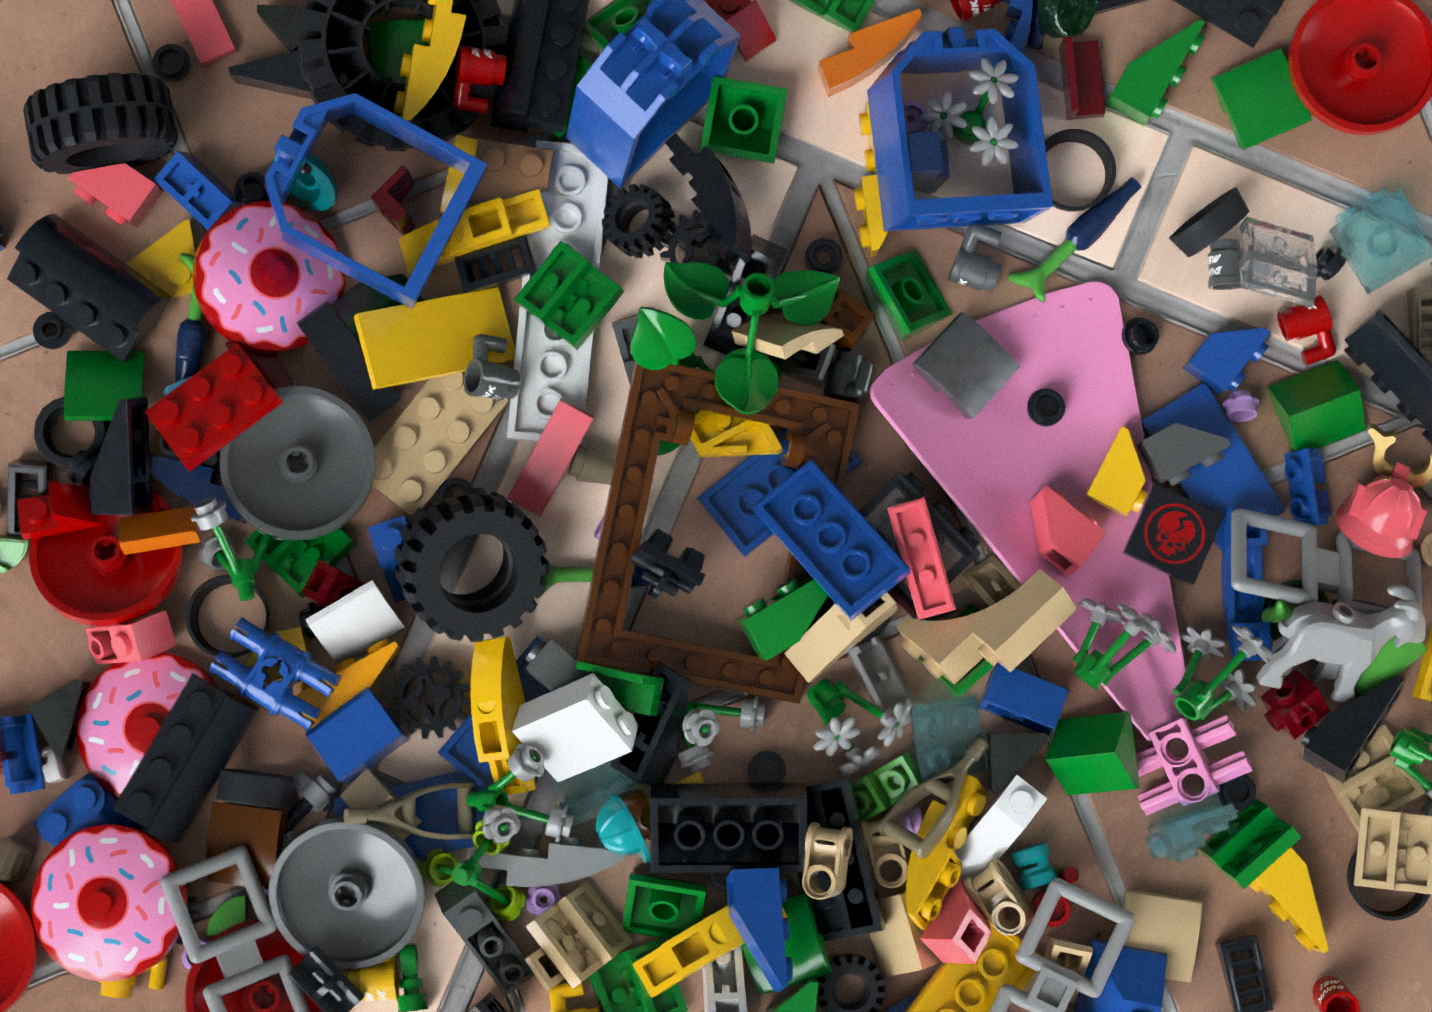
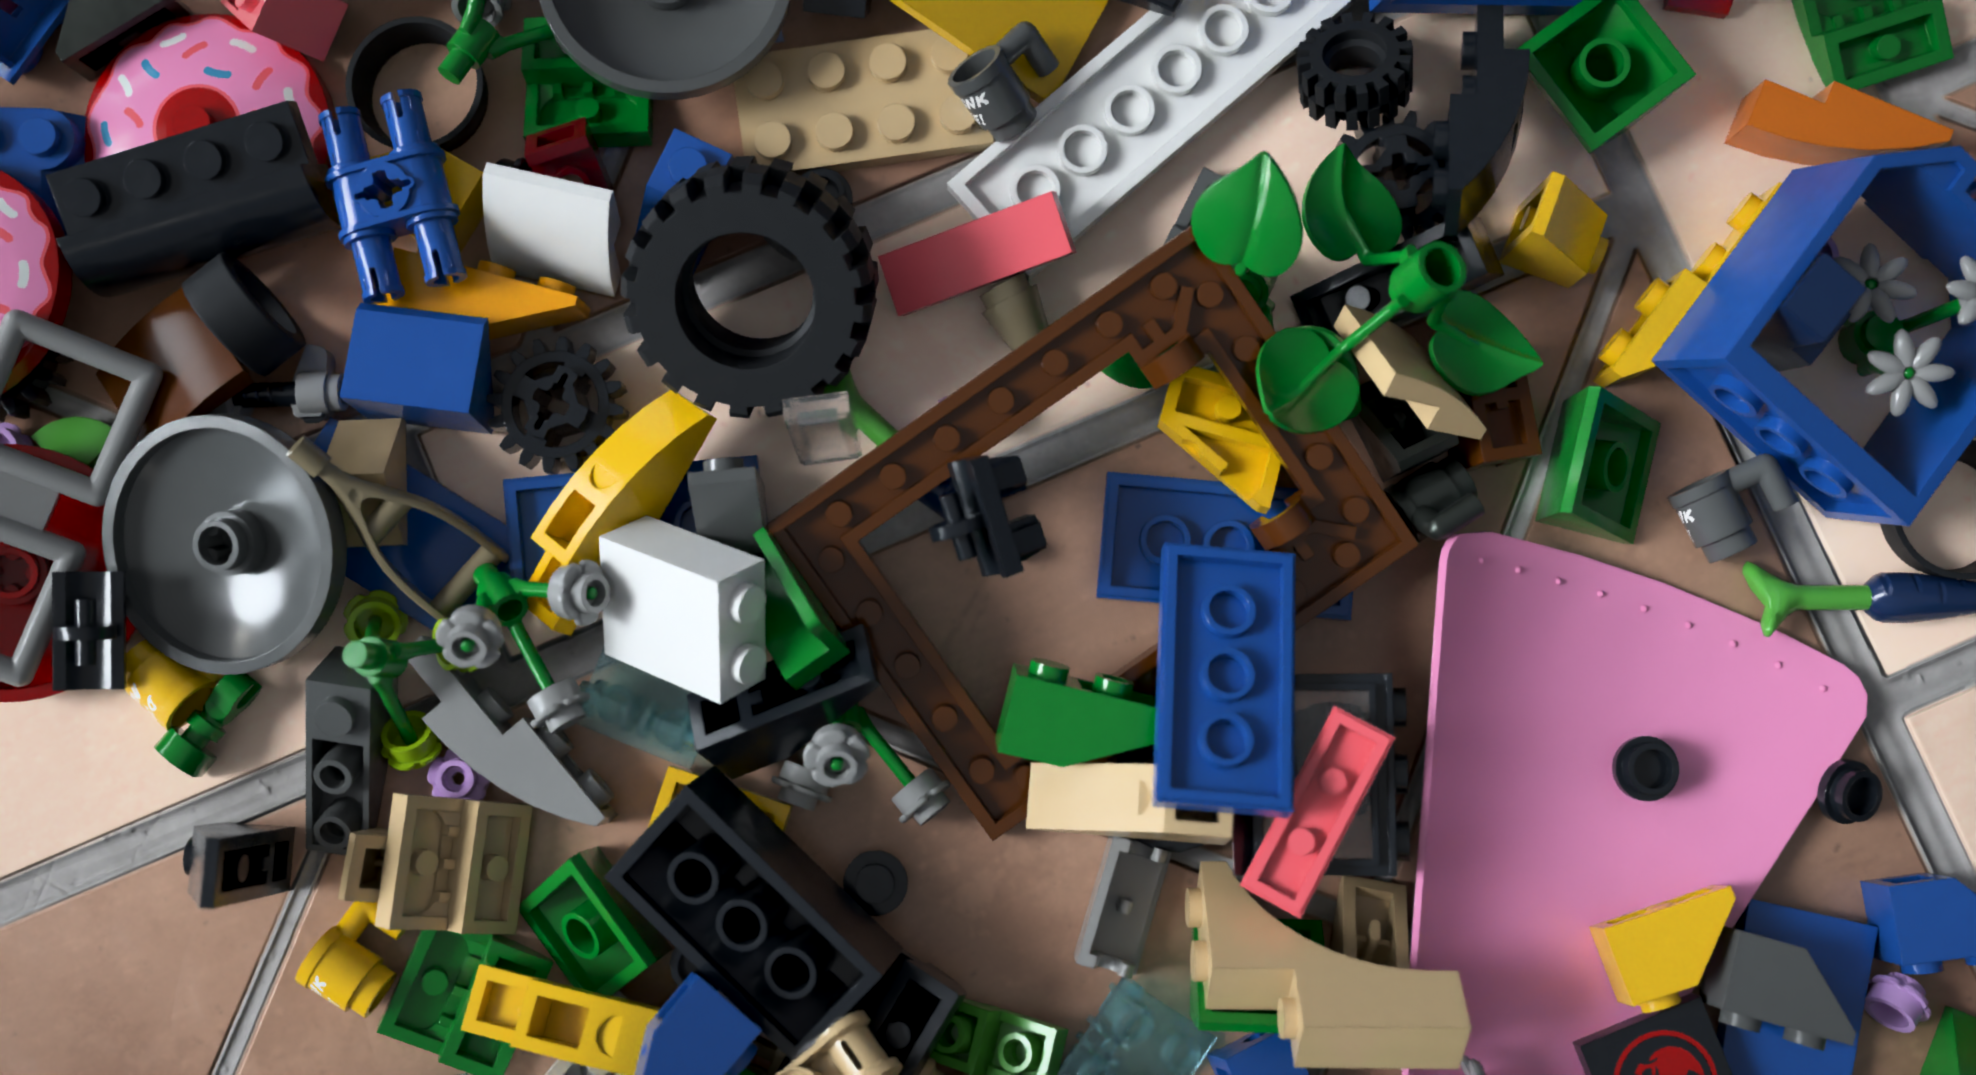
camera: 50 degrees right, 0 degrees up
(54, 768) = (47, 75): white tile -> none
(558, 596) = (822, 428): none -> clear tile
(569, 295) = (1185, 81): green slope -> none
(620, 824) = (627, 778): teal piece -> none
(793, 211) = (1556, 233): none -> yellow slope
(828, 246) = (1554, 318): black plate -> none
(829, 703) = (1028, 877): light grey plant -> none
(966, 365) = (1596, 622): flat silver slope -> none
(1063, 532) = (1525, 945): coral slope -> none

